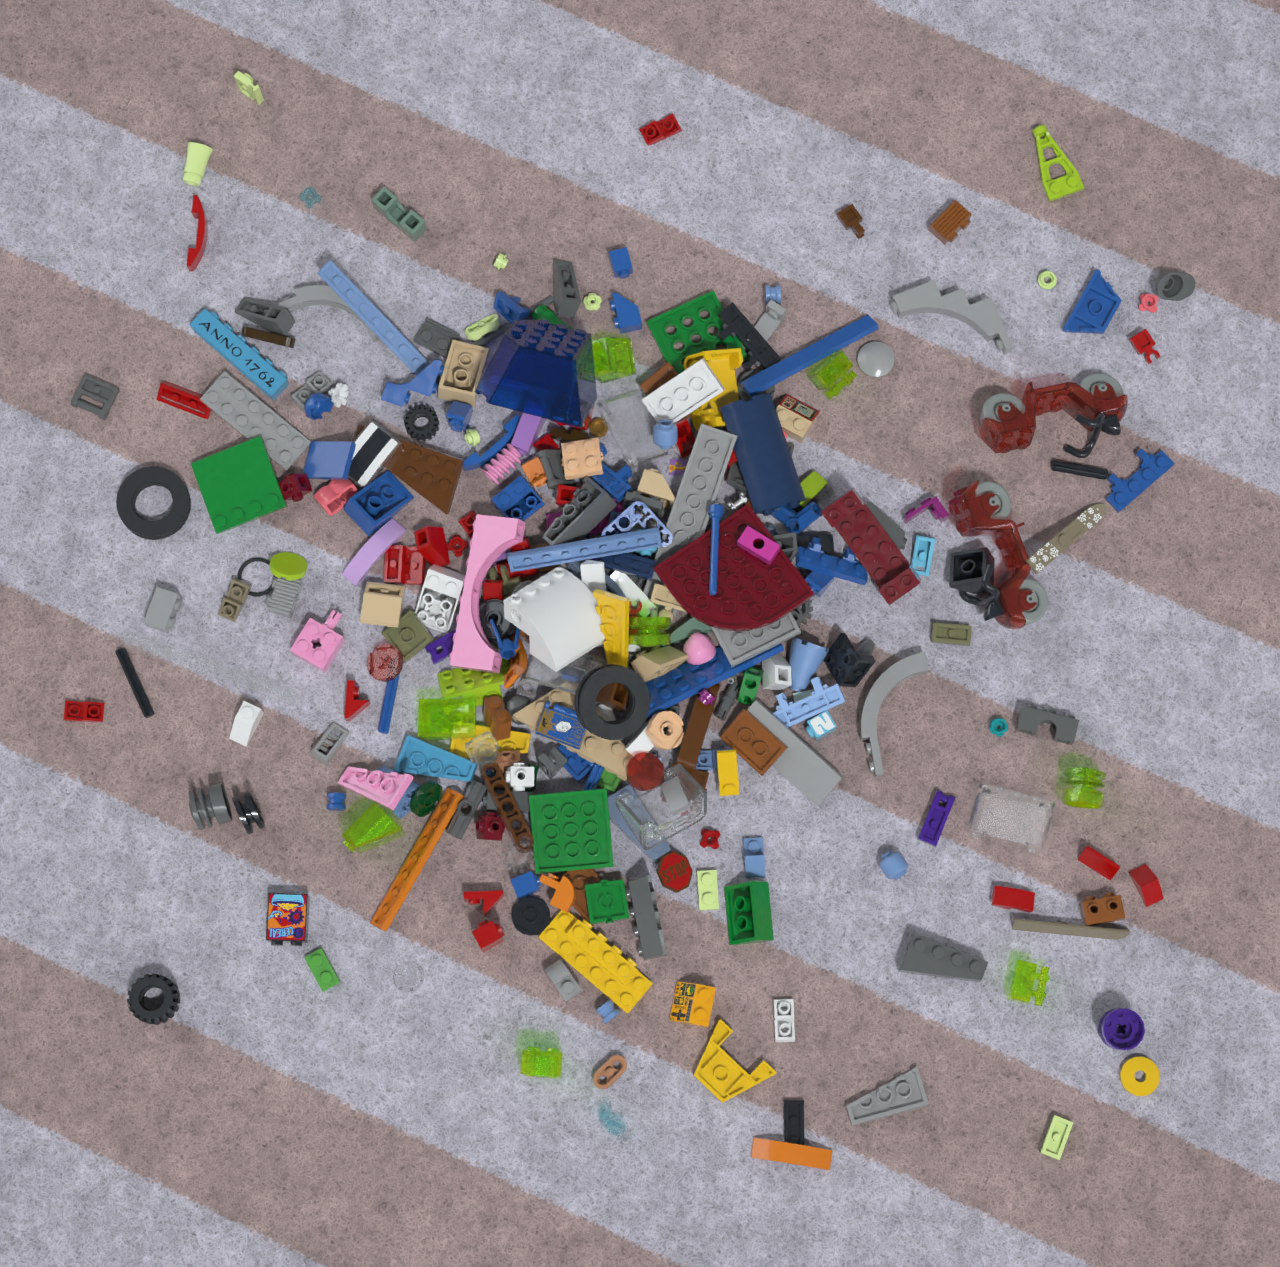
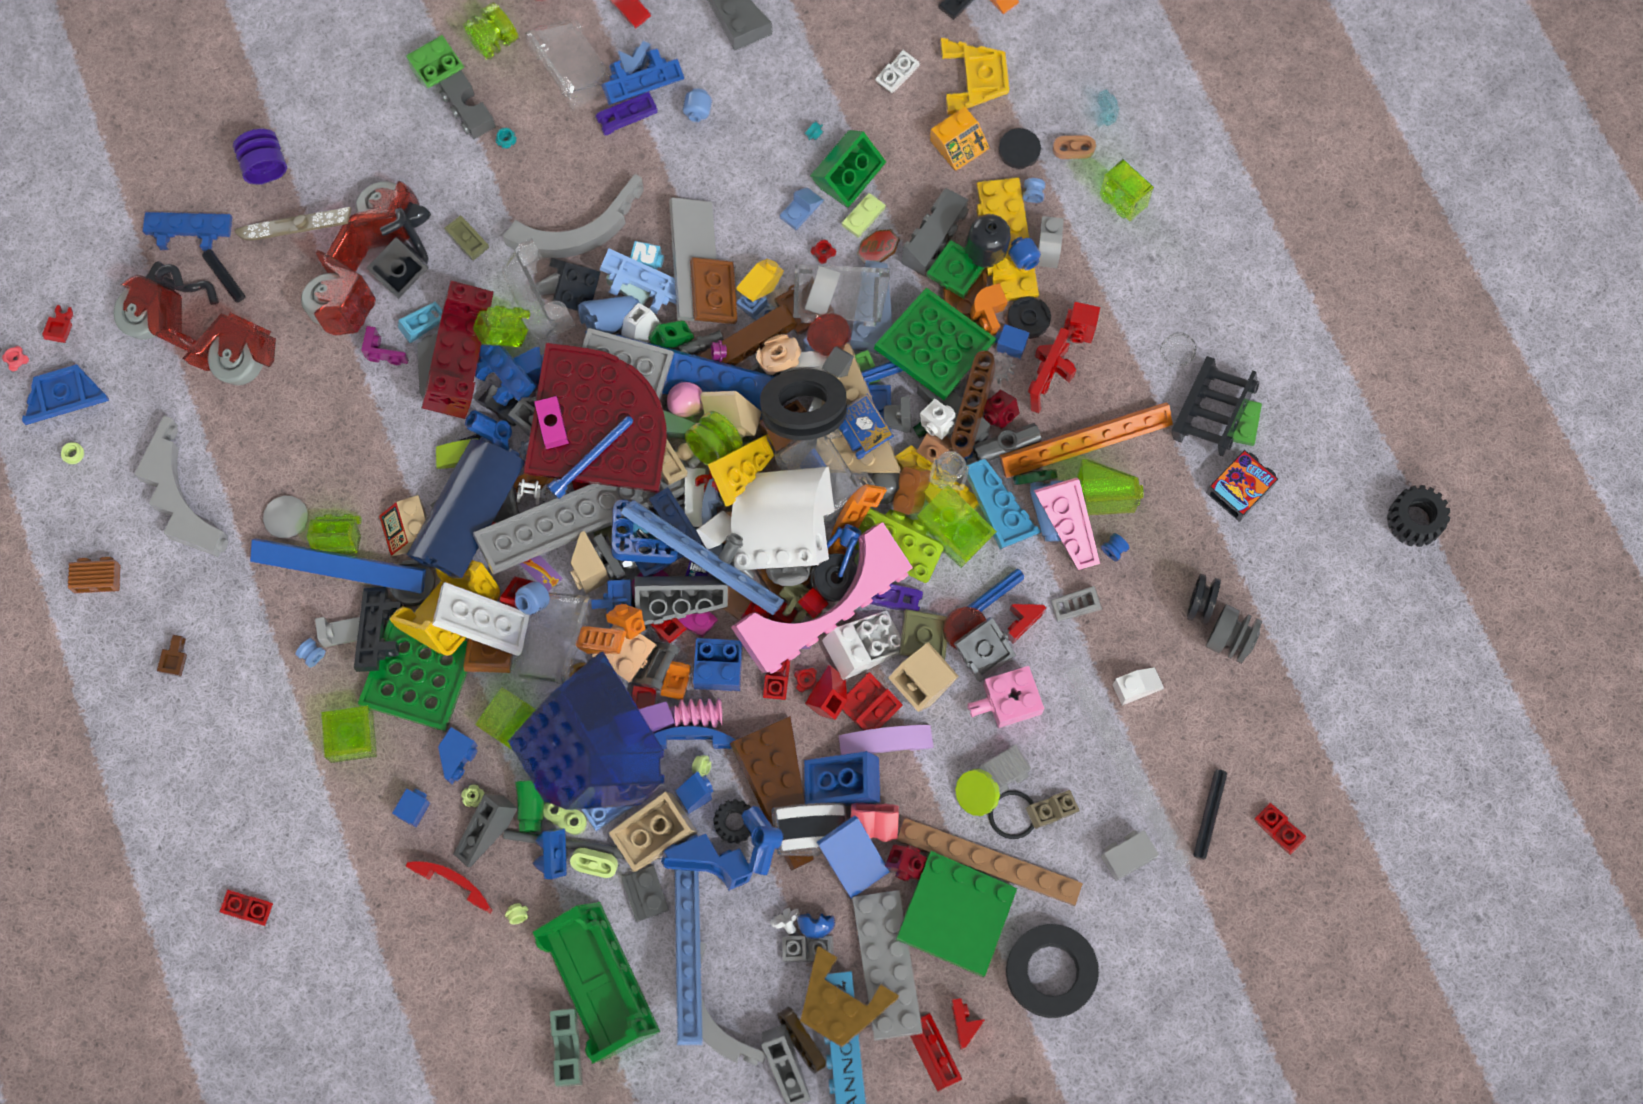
camera: 140 degrees left, 5 degrees down
(176, 425) = (964, 1029): none -> red slope
(246, 535) = (990, 862): none -> medium nougat plate
(258, 364) = (834, 1011): none -> pearl gold wing
(361, 659) = (985, 649): none -> plate
(369, 962) = (1200, 391): none -> black fence
(389, 419) = (764, 839): none -> blue piece
(415, 266) = (598, 980): none -> green windscreen
(481, 877) = (1046, 371): none -> red wing
(569, 950) = (1024, 253): none -> blue head
(572, 573) = (733, 543): none -> dark grey pin
(578, 237) = (427, 869): none -> red slope
(594, 471) = (628, 618): none -> orange bracket
(602, 941) = (988, 240): none -> black cylinder
(607, 446) = (595, 640): none -> orange slope
(618, 752) = (838, 362): none -> dark grey slope
(647, 1038) = (1019, 148): none -> black tile
(698, 268) = (349, 734): none -> clear neon green brick
(798, 921) = (814, 131): none -> teal plate
(839, 620) = (544, 319): none -> clear windscreen
(860, 588) = (502, 326): none -> clear neon green brick
(949, 833) = (630, 85): none -> blue hinge
(966, 853) = (638, 59): none -> medium blue slope
(1096, 732) = (434, 62): none -> bright green slope
(1139, 561) = (259, 156): none -> dark purple wheel

